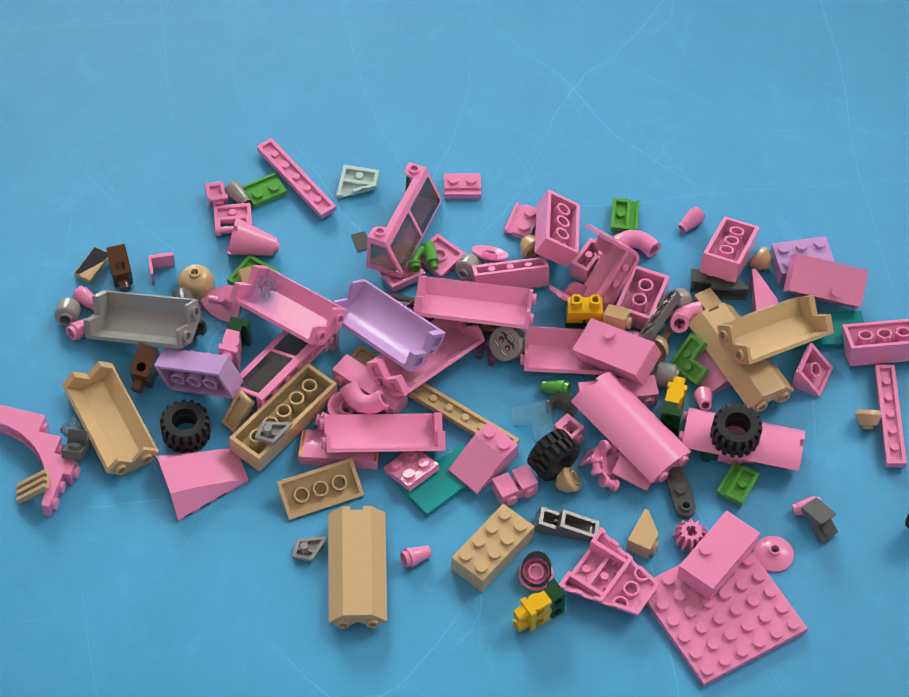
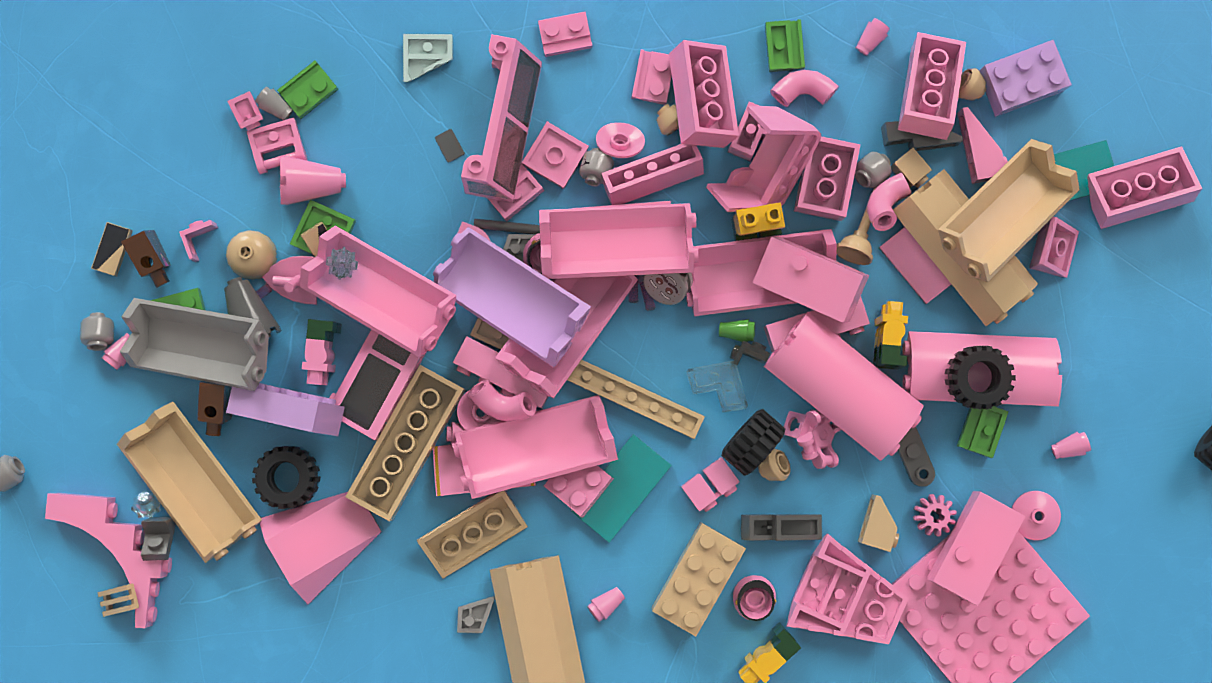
camera: 10 degrees left, 30 degrees up
(83, 297) = (113, 303): bright pink cone -> none
(238, 411) = (347, 446): tan tile -> none
(272, 431) = (396, 482): light grey piece -> none
(296, 178) = (345, 63): bright pink plate -> none
(429, 251) = (545, 164): bright green plant -> none
(484, 458) = (666, 460): bright pink slope -> none
(572, 427) = (761, 383): bright pink brick -> none
(618, 317) = (802, 223): tan brick -> none
(628, 472) = (842, 442): bright pink tile -> none
(659, 316) = (857, 215): dark grey plate -> none
(665, 373) = (876, 288): light grey head -> none
(687, 357) = (896, 265): bright green plate -> none
(703, 397) = (925, 314): bright pink cone -> none
(819, 519) = (1090, 466): dark grey slope -> none
(826, 281) = (1062, 114): bright pink brick -> none
(868, 418) = (1132, 303): tan cone -> none
(891, 416) = (1158, 293): bright pink plate -> none

